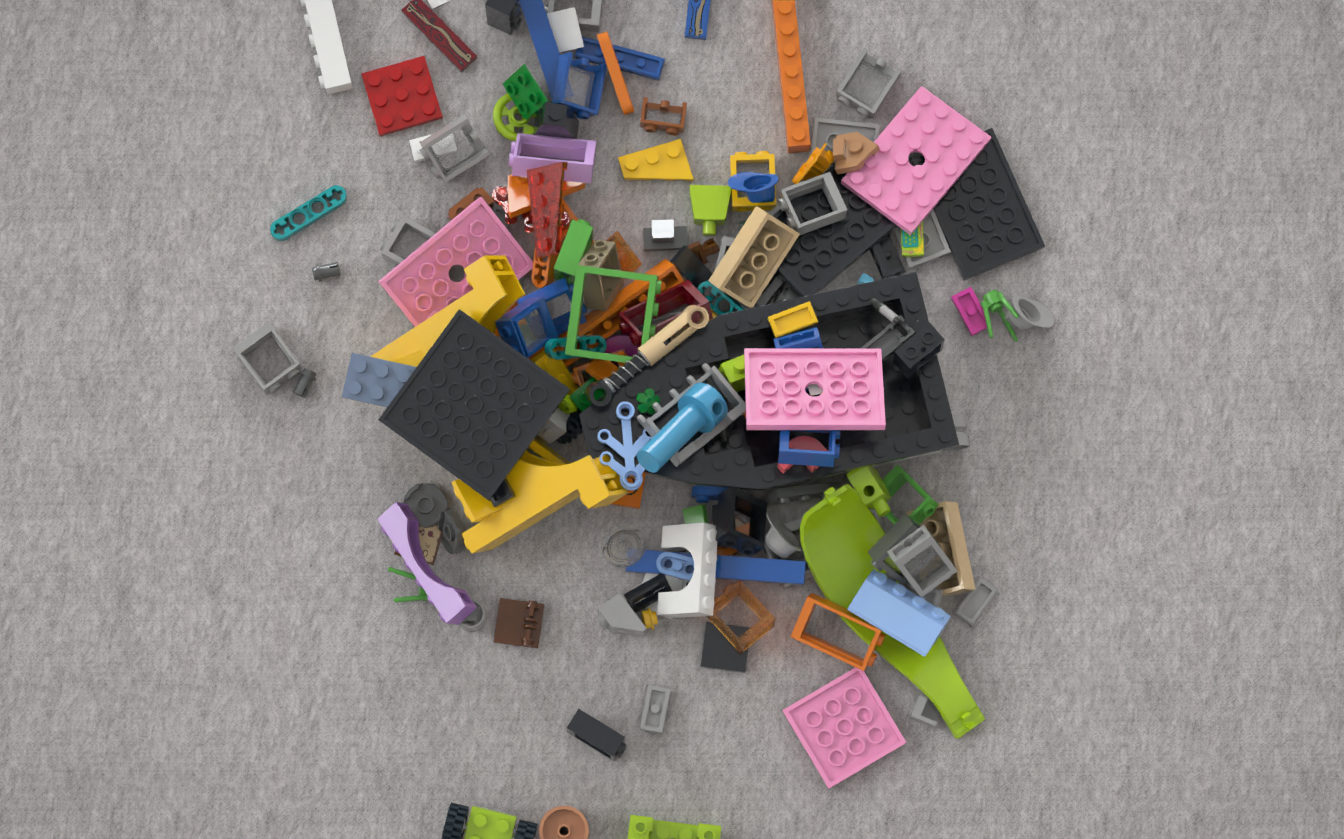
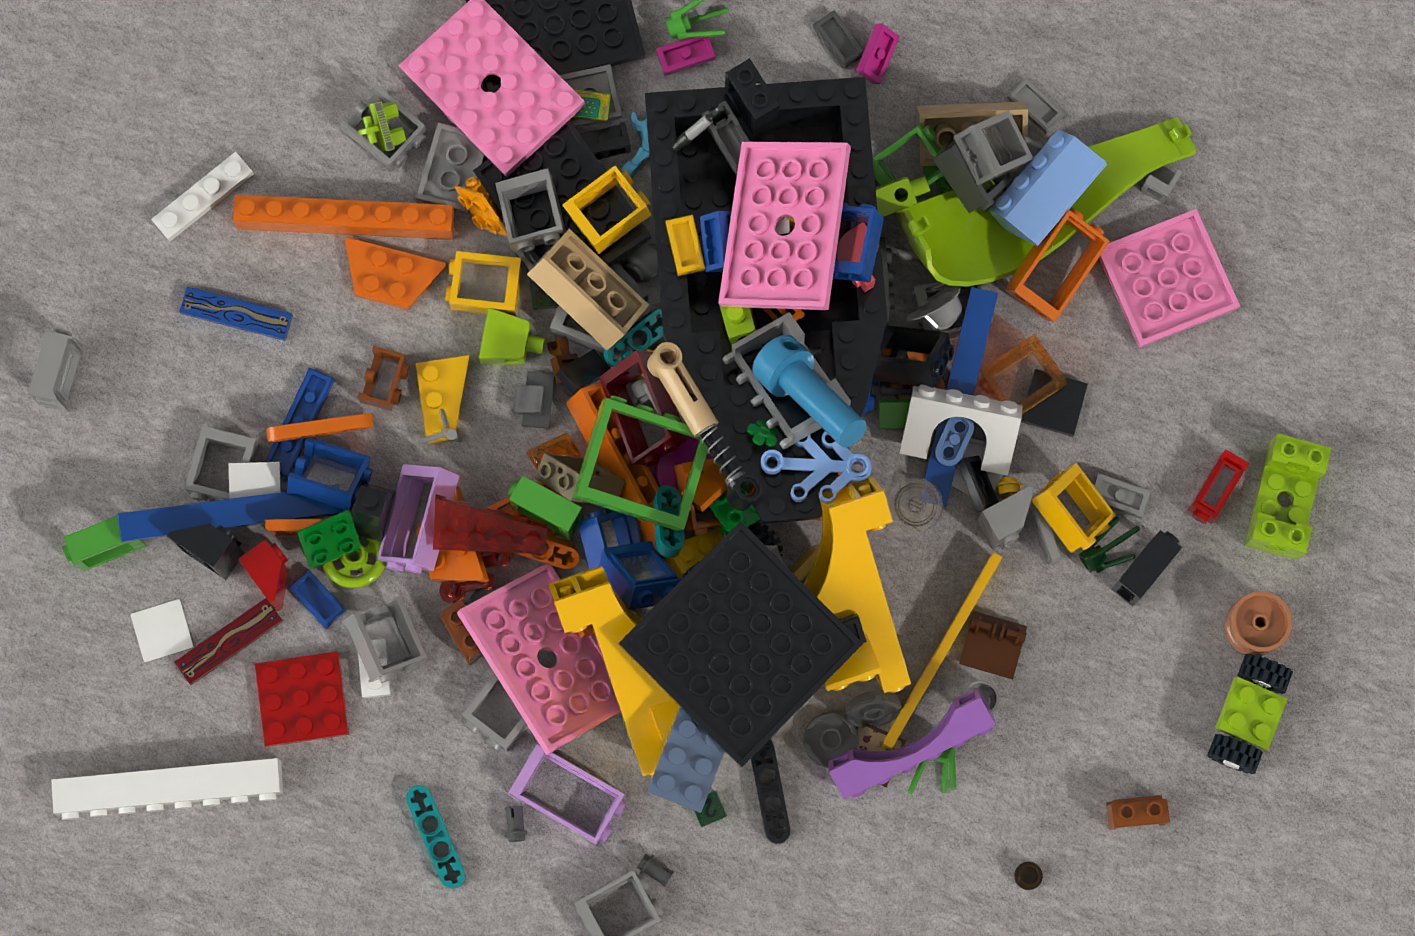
camera: 80 degrees left, 0 degrees up
(337, 674) = (1028, 875): none -> dark brown plate
(357, 417) = (712, 810): none -> clear green tile
(363, 273) = (528, 772): none -> lavender window
(380, 466) = (771, 789): none -> black beam
(398, 753) = (1137, 812): none -> dark orange window
(481, 94) = (317, 599): none -> blue tile
(493, 52) = (268, 571): none -> red slope
(507, 581) = (941, 651): none -> yellow tile
(532, 61) = (288, 526): none -> orange tile
(602, 694) = (1094, 557): none -> dark green plant
(613, 652) = (1045, 537): none -> light grey tile
(624, 168) = (446, 431): none -> light grey plant
(647, 681) = (1087, 499): none -> yellow window
(672, 787) = (1217, 487): none -> red window
(750, 107) = (390, 274): none -> orange wing
(756, 186) = (496, 274): blue piece -> none
(817, 236) = (595, 190): none -> yellow window
(852, 151) = (471, 154): medium nougat plate -> none
(858, 87) = (380, 114): none -> lime hips
(997, 465) = (877, 53): none -> dark pink plate
(1005, 433) = (838, 39): none -> dark grey tile

